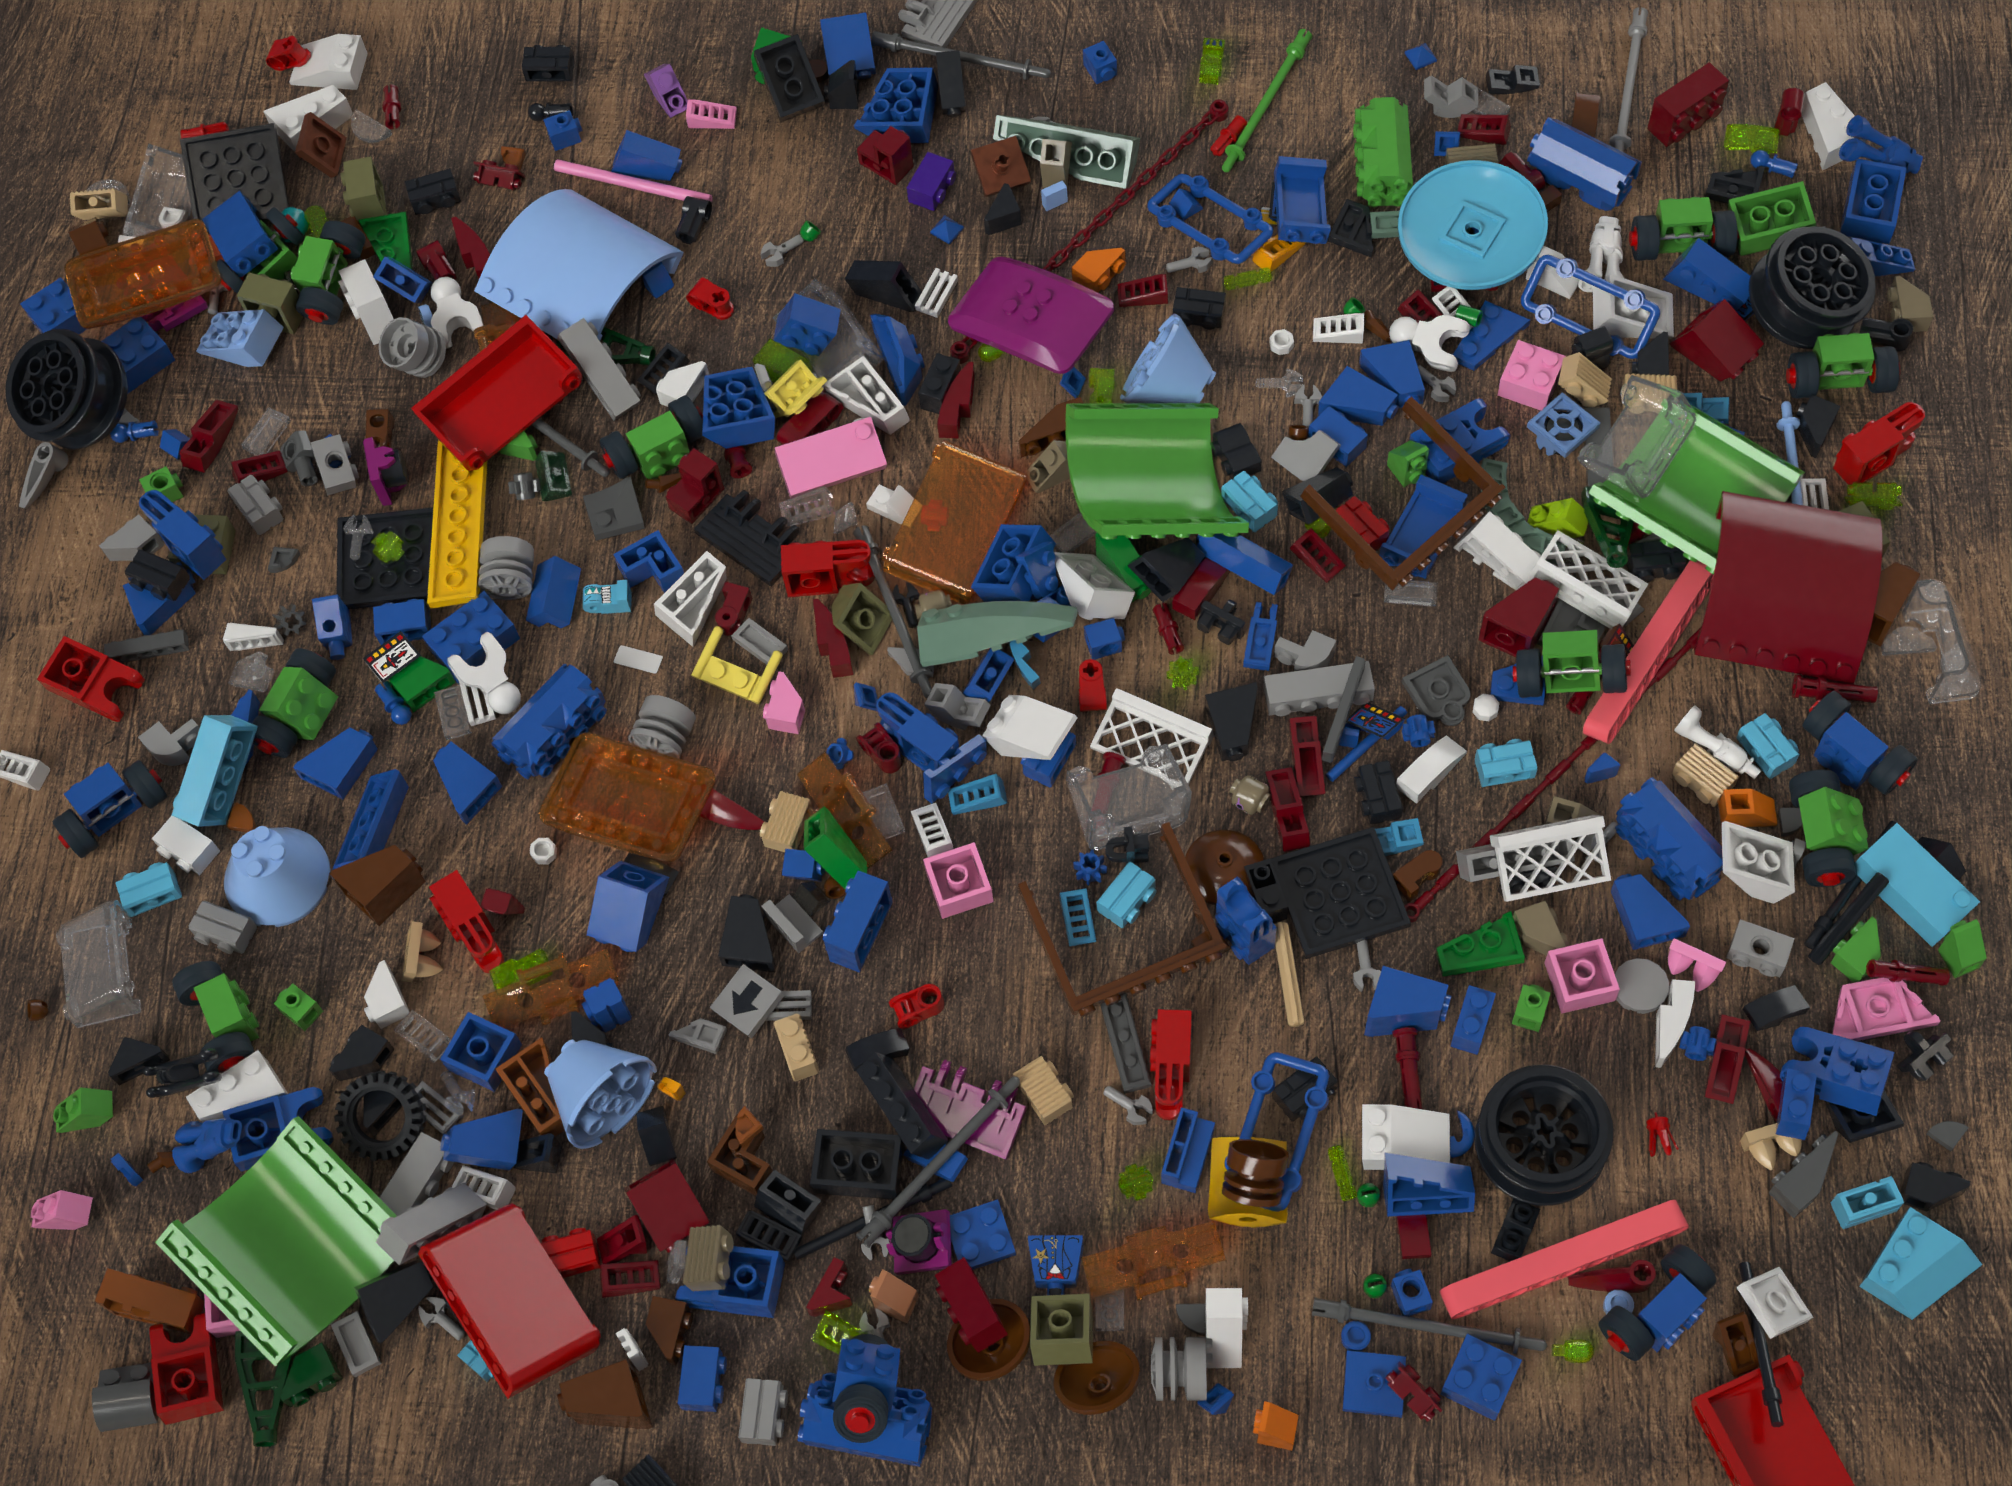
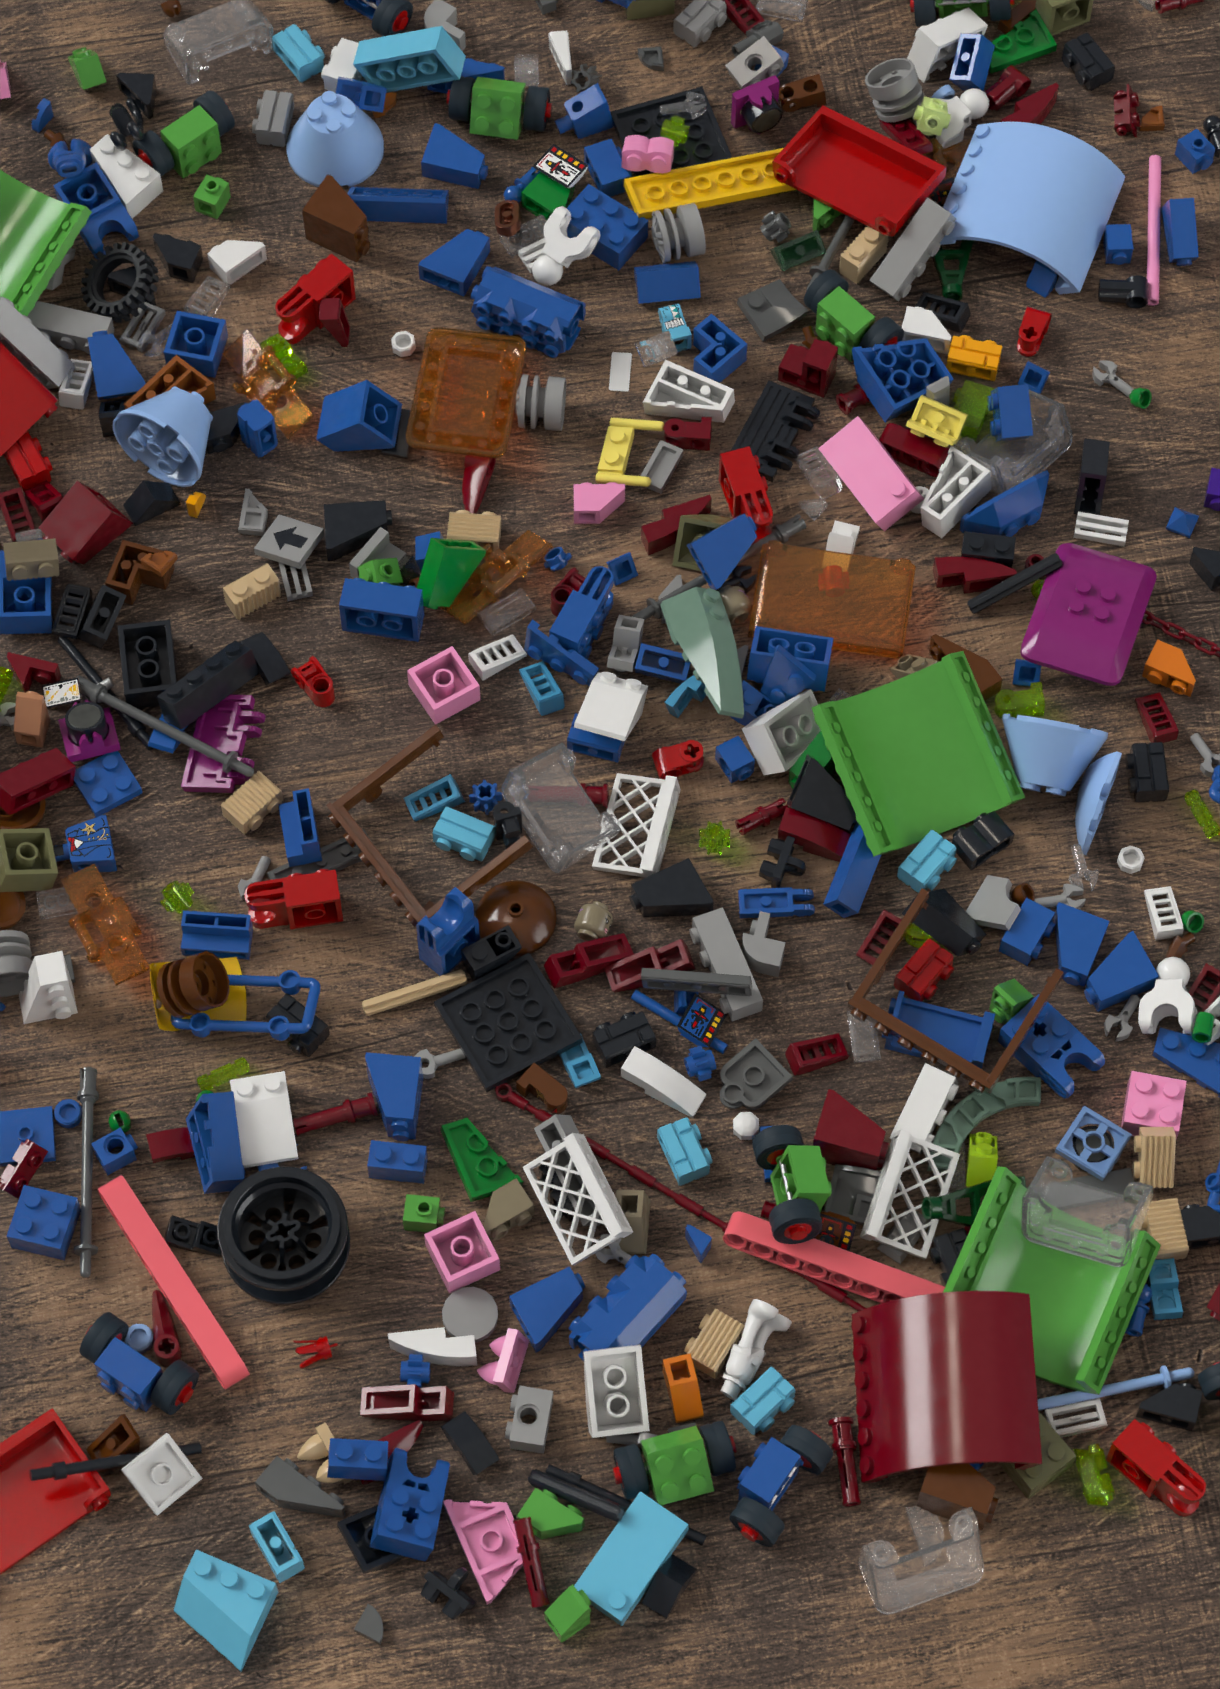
camera: 70 degrees right, 0 degrees up
(228, 832) = (363, 94): none -> blue slope
(407, 575) = (646, 153): none -> bright pink brick
(414, 963) = (271, 273): tan tile -> none
(434, 720) = (507, 218): none -> copper plate
(455, 321) = (932, 116): none -> yellowish green brick
(464, 351) = (907, 134): none -> dark red tile
(581, 419) = (862, 254): none -> tan brick
(633, 615) = (656, 348): none -> clear slope
(642, 211) = (1118, 244): none -> blue brick
(727, 349) = (974, 357): none -> light orange brick
(762, 309) = (1034, 377): none -> blue slope
(815, 915) = (381, 571): none -> bright green brick
(868, 1259) = (62, 692): none -> sticker
(884, 593) = (722, 549): none -> blue slope
(981, 366) = (1015, 583): none -> black axle
(1087, 1046) = (300, 829): none -> blue piece
(1224, 348) = (1093, 797): none -> light blue brick
(1427, 649) = (799, 1058): none -> dark red slope
(1574, 1350) = (86, 1303): clear neon green cylinder -> none
(1595, 346) = (1194, 1157): black brick -> none
(1930, 1188) = (306, 1607): black slope -> none

